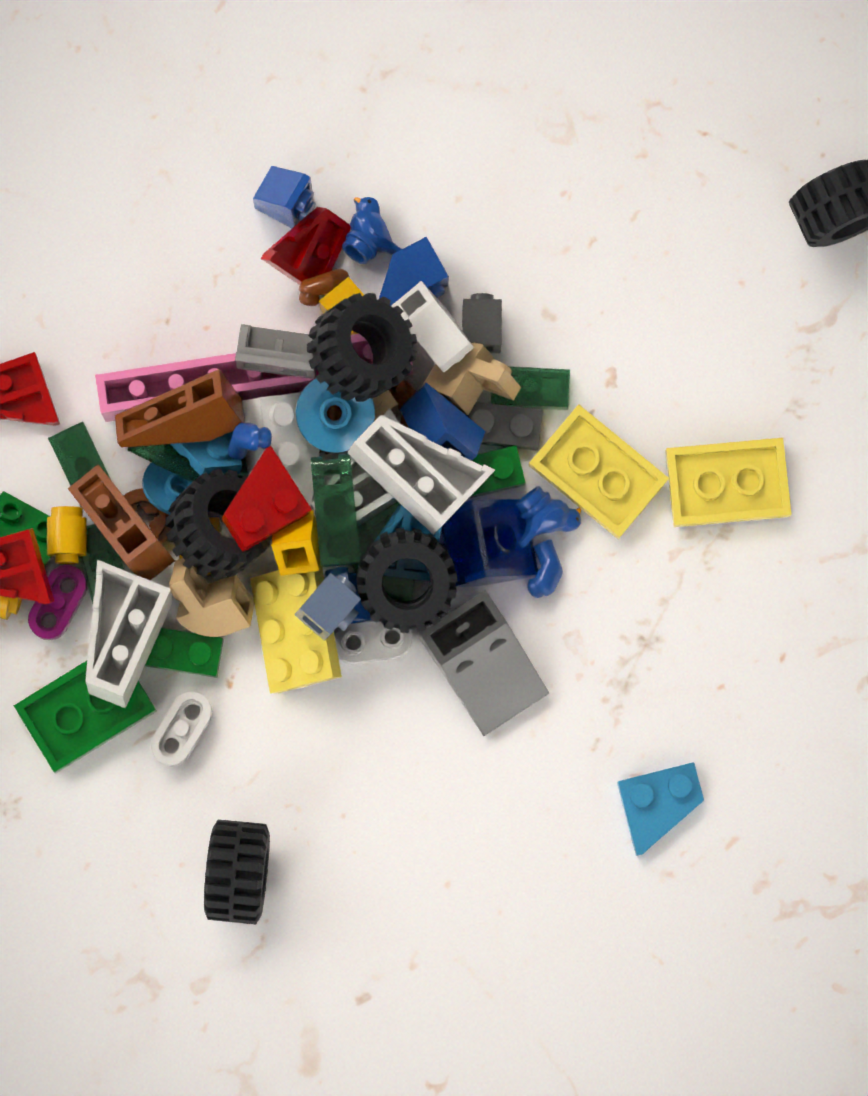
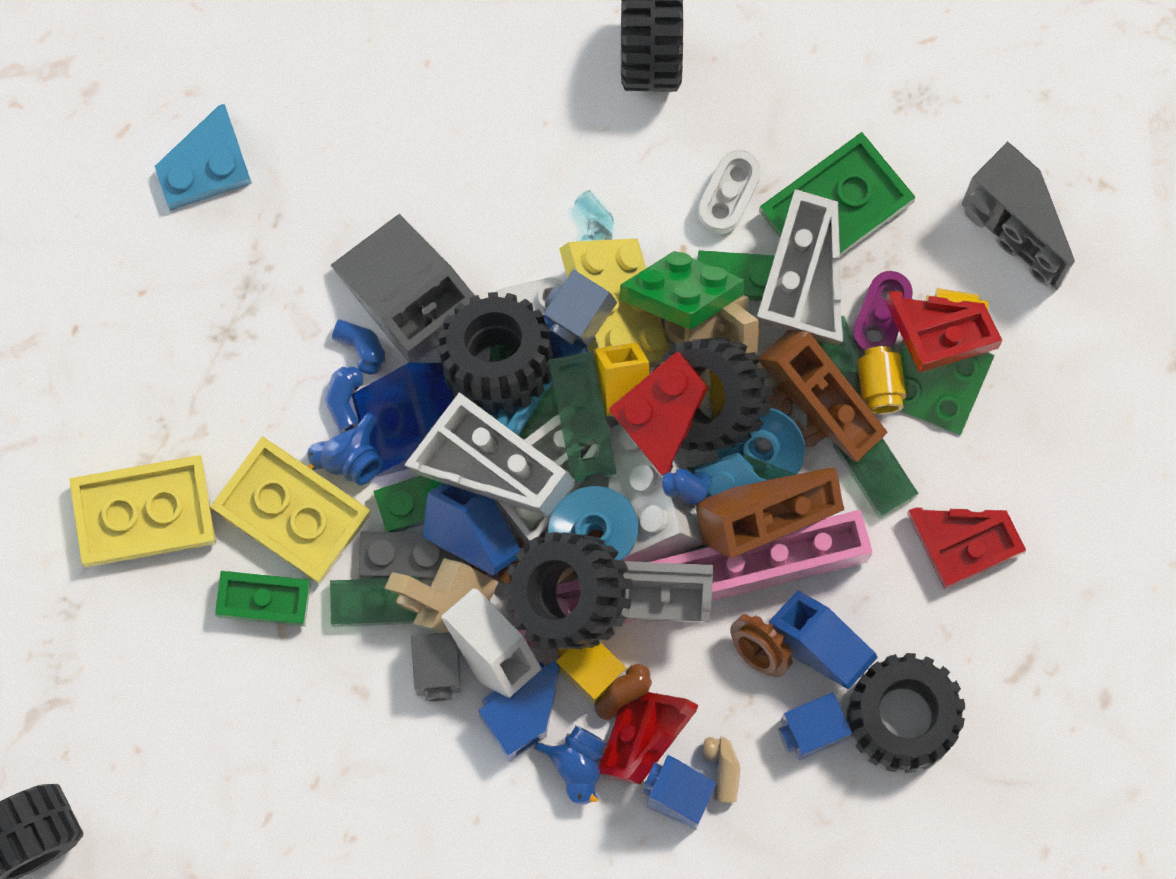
camera: 175 degrees right, 5 degrees down
(80, 215) = (932, 686): none -> black tyre
(147, 308) = (822, 640): none -> blue slope
(164, 244) = (814, 726): none -> blue brick
(201, 313) = (761, 645): none -> dark orange gear
(234, 627) = (682, 289): none -> green plate
(240, 220) = (728, 767): none -> tan arm
(302, 710) = (599, 218): none -> clear light blue arm
(522, 617) = (365, 343): none -> blue arm
(627, 396) = (263, 598): none -> green plate

